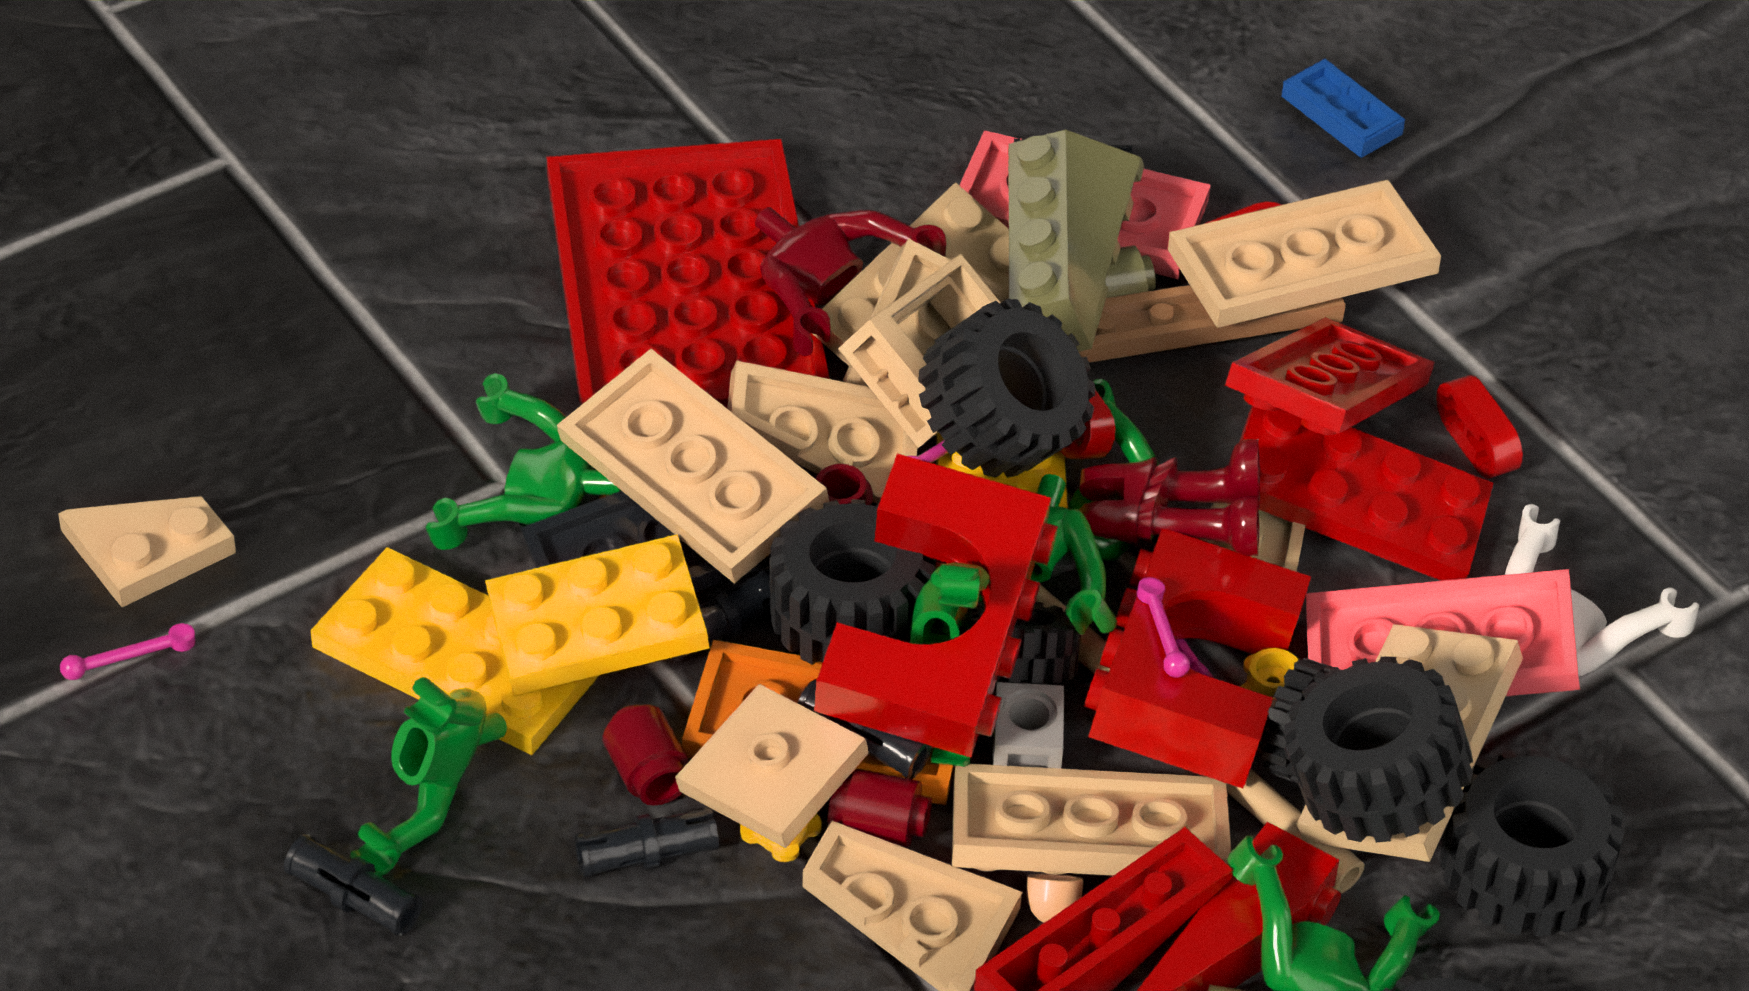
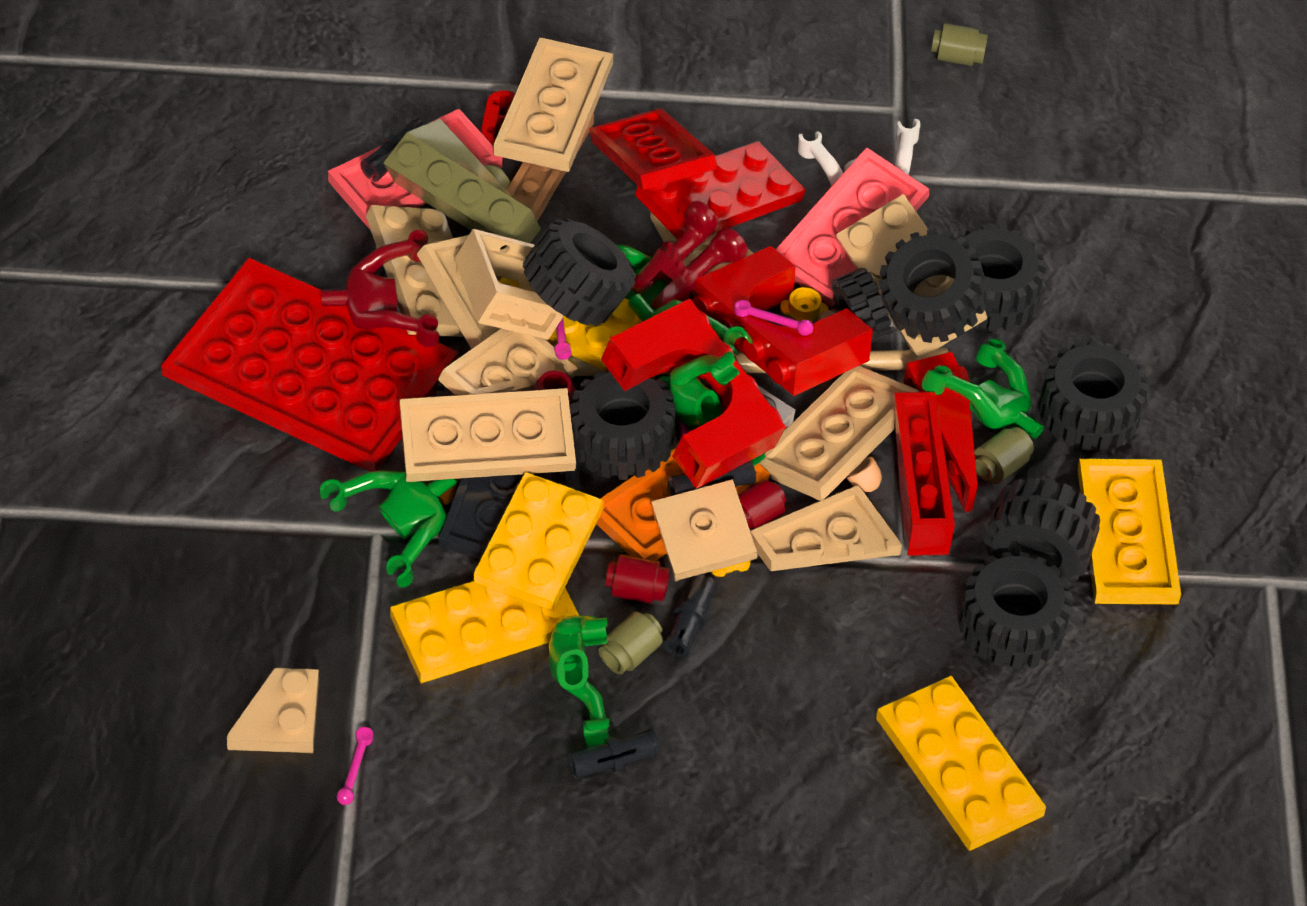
camera: 55 degrees left, 5 degrees up
(541, 802) = (631, 642): none -> olive brick
(1343, 108) = (448, 21): blue plate -> none
(1479, 426) = (718, 121): red beam -> none

